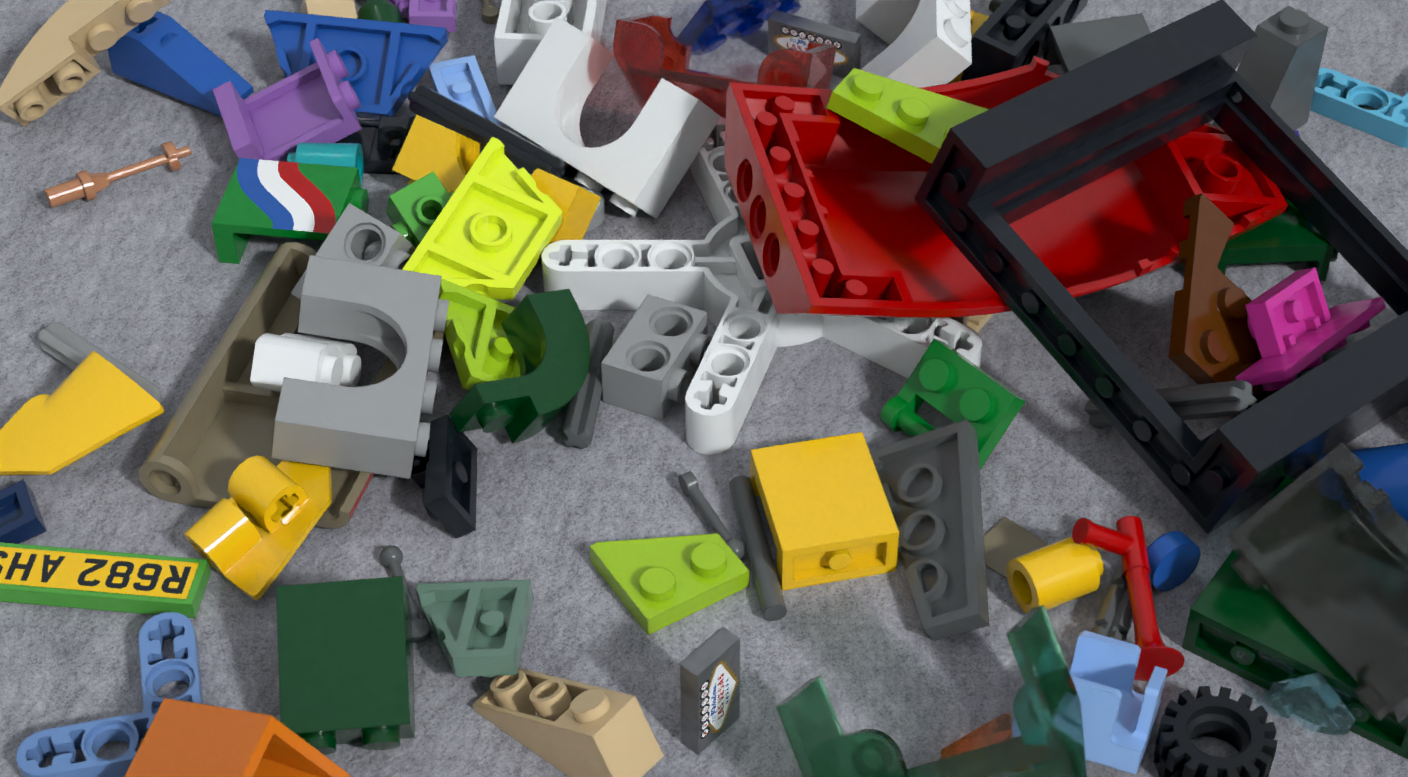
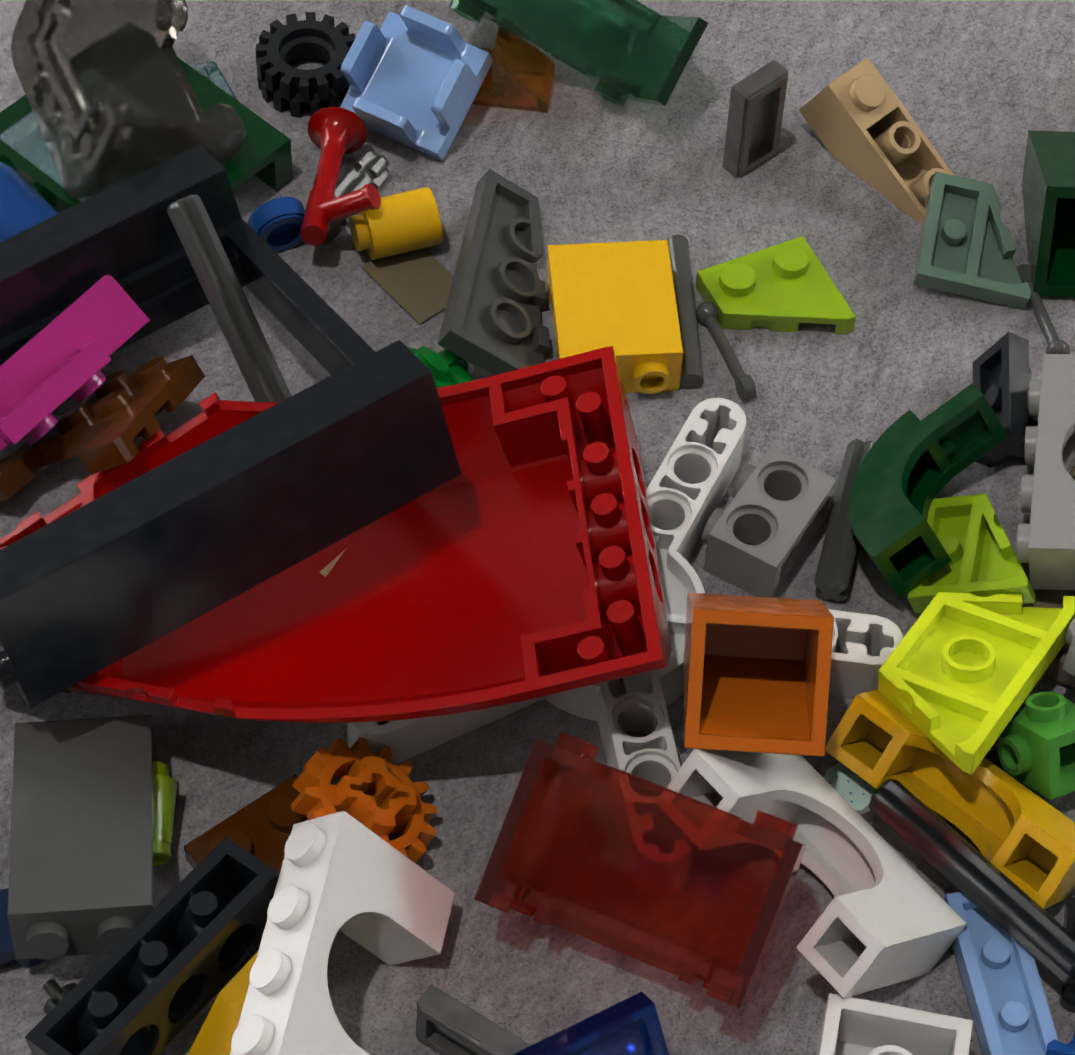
camera: 175 degrees left, 10 degrees up
(660, 168) = (756, 674): none -> orange slope
(900, 112) = (411, 635): lime wing -> none

